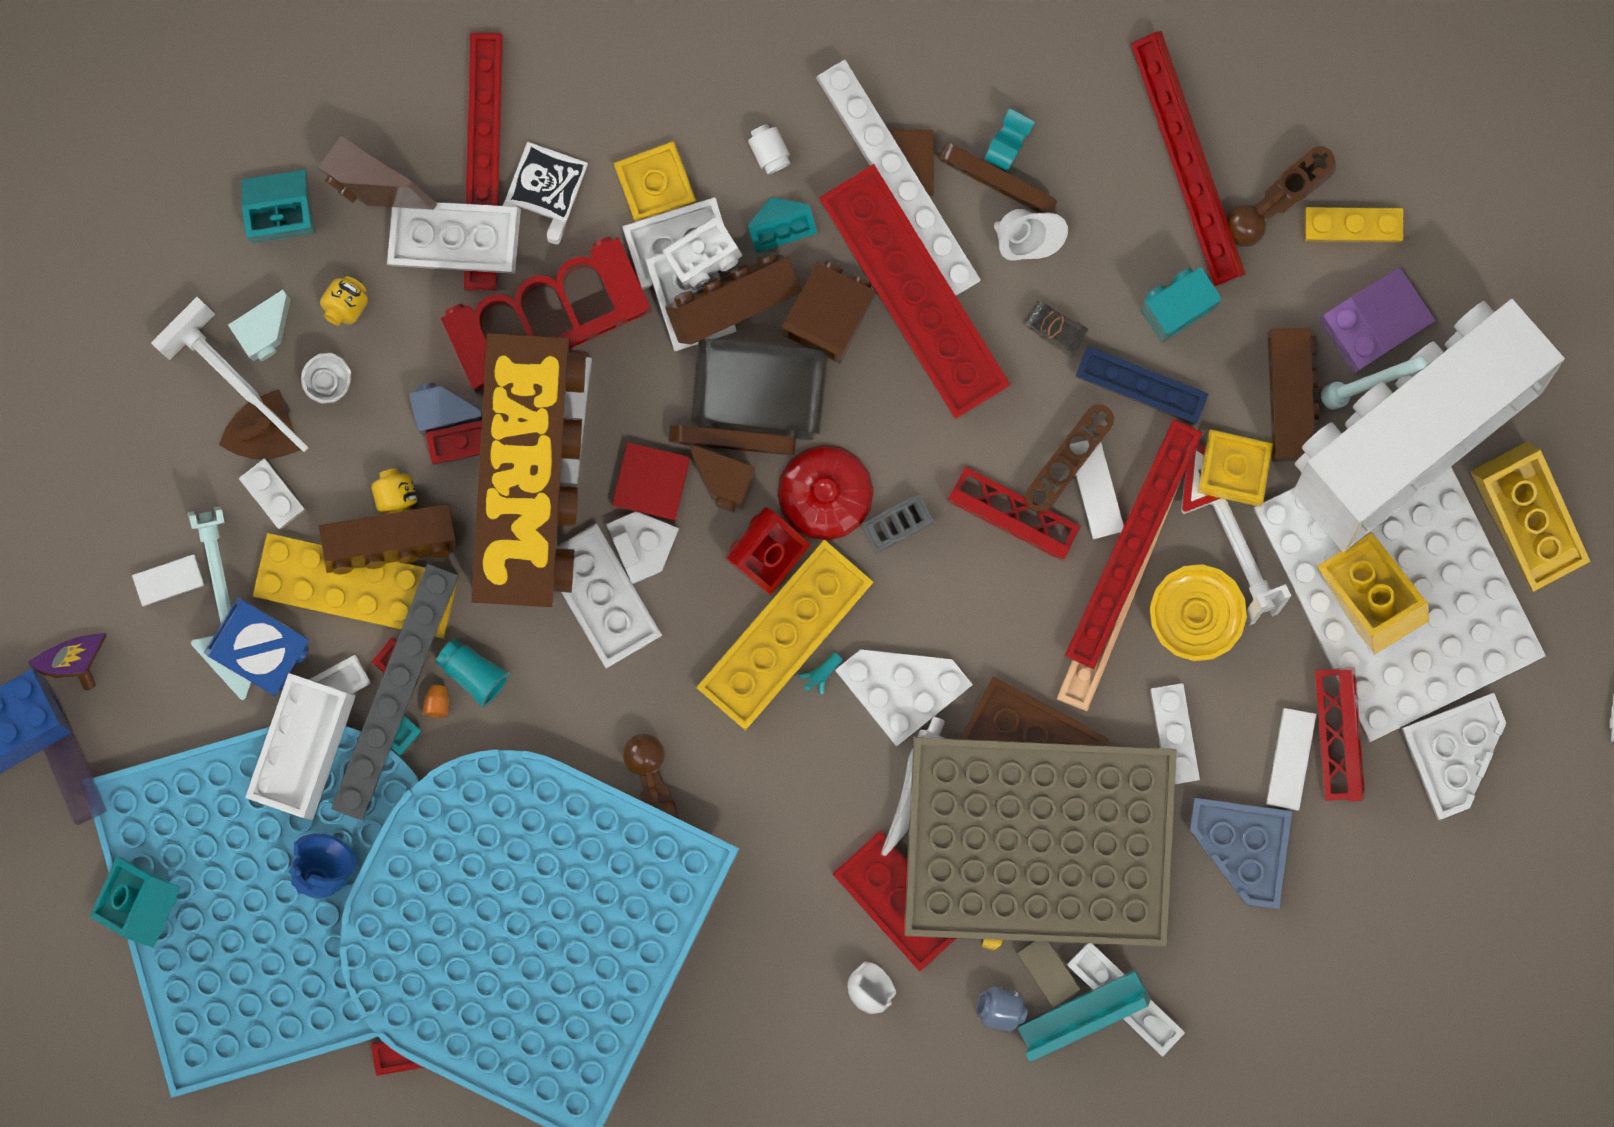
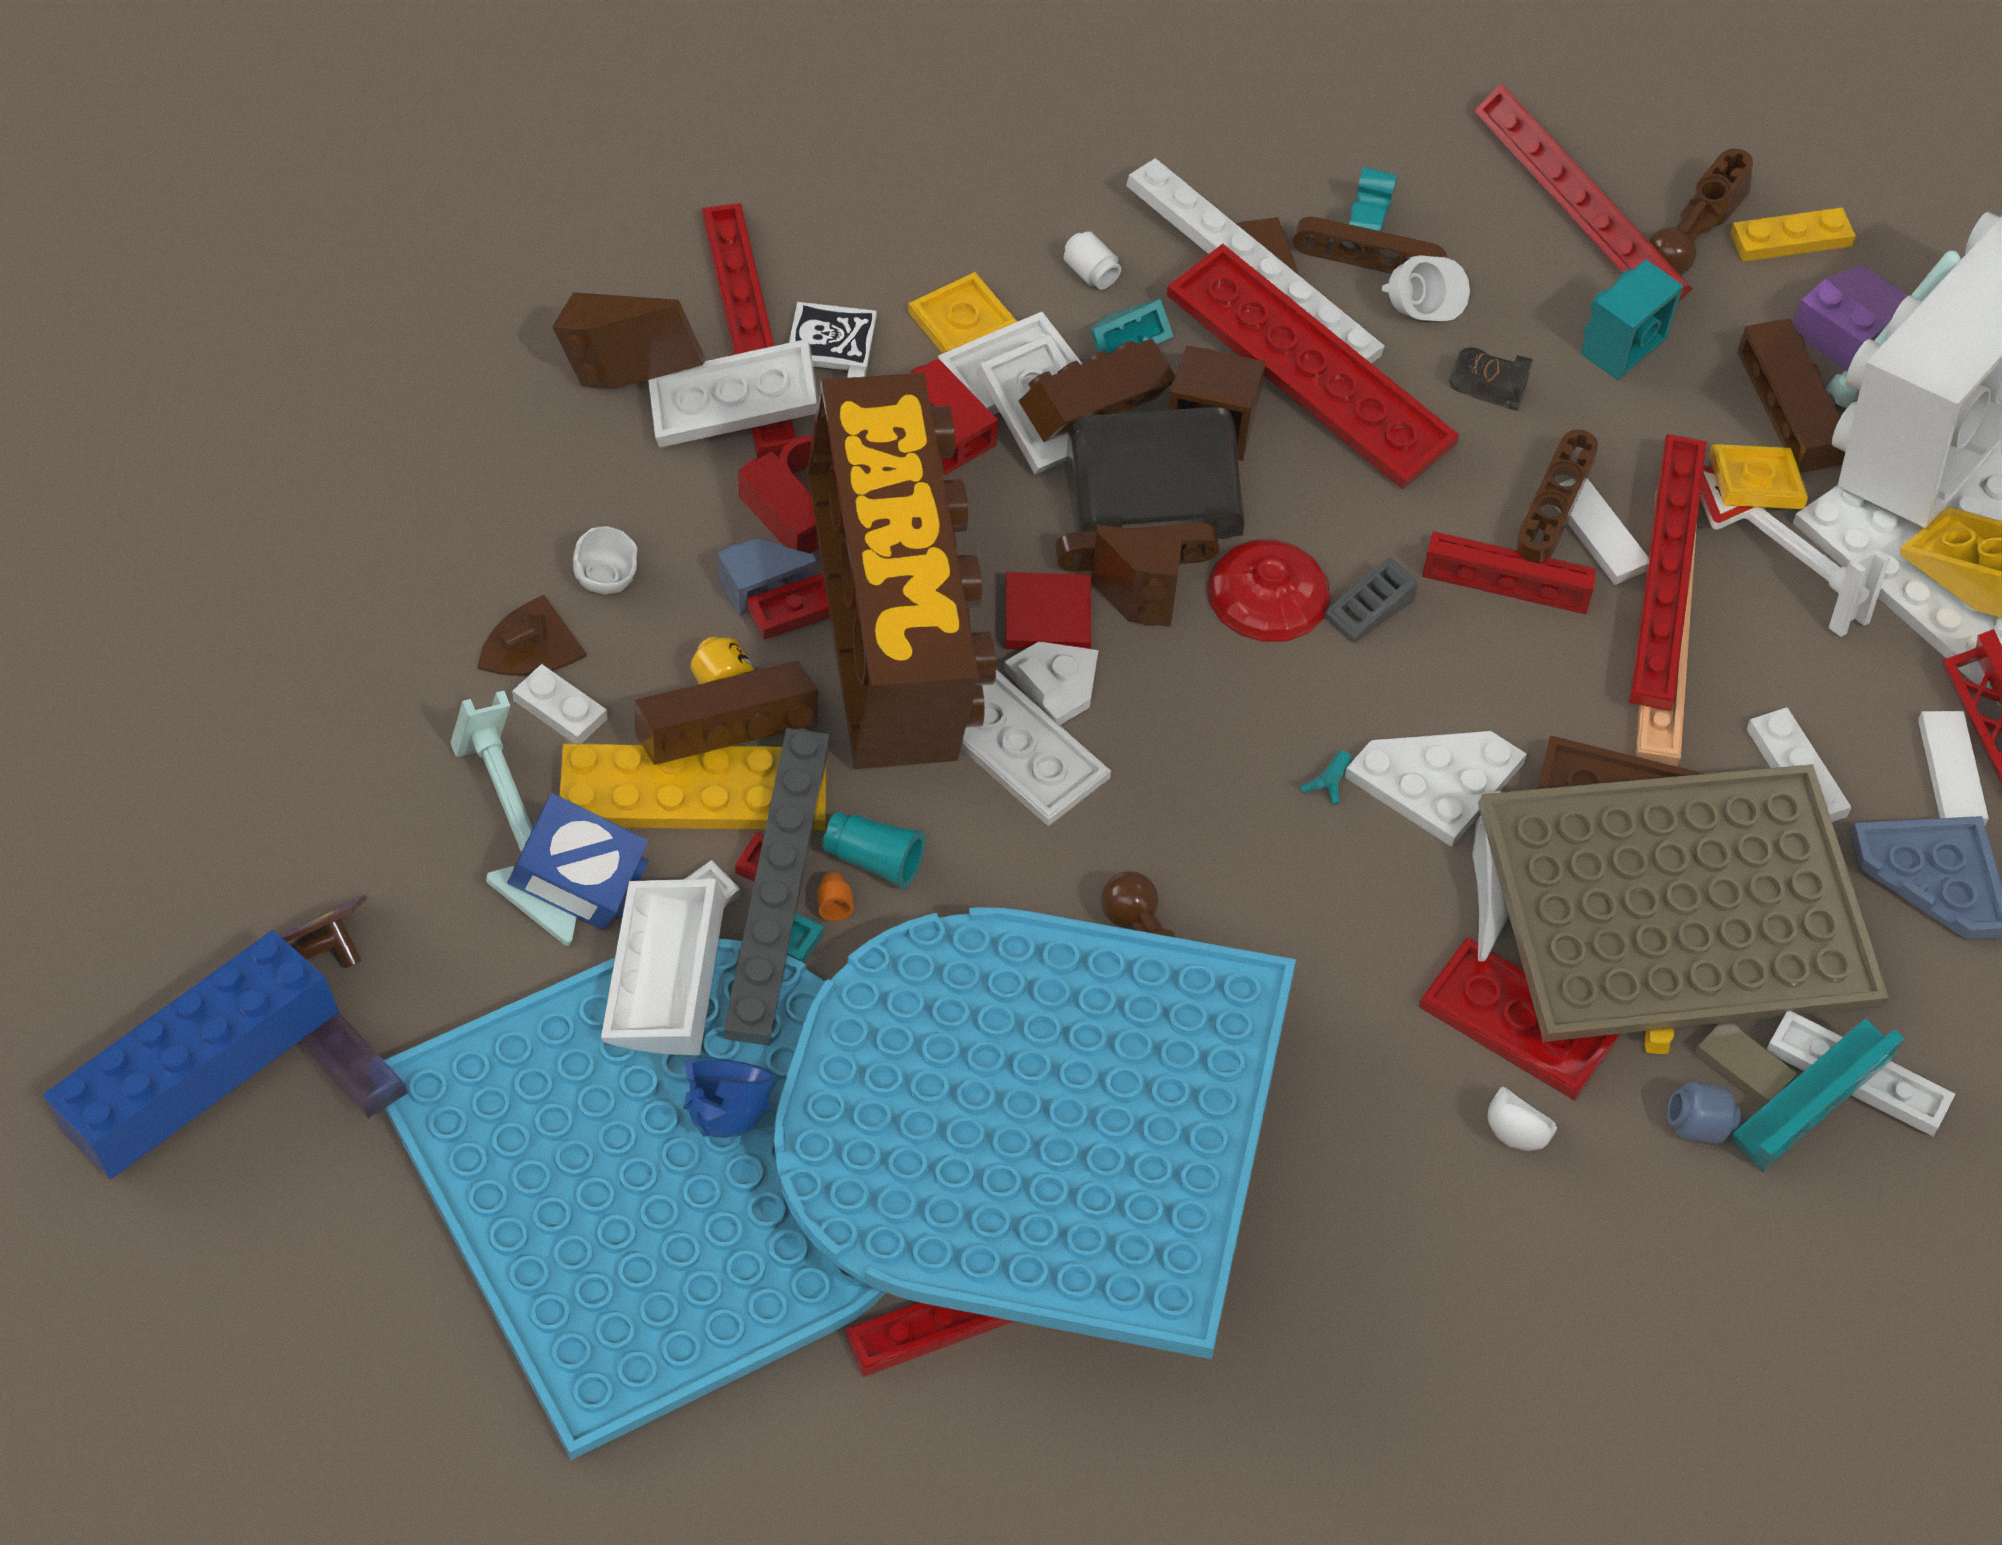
camera: 20 degrees left, 30 degrees down
(135, 902) = (470, 1192): teal slope -> none
(168, 580) = (440, 822): white tile -> none
(185, 331) = (417, 539): white piece -> none
(262, 327) = (507, 525): light aqua slope -> none
(277, 207) = (507, 405): teal slope -> none
(344, 301) = (609, 482): yellow head -> none
(703, 253) = (1051, 338): white bracket -> none
(767, 550) = (1218, 647): red brick -> none
(784, 635) = (1268, 743): yellow plate -> none
(1141, 385) = (1611, 414): dark blue plate -> none
(1198, 612) = (1777, 621): yellow hat -> none

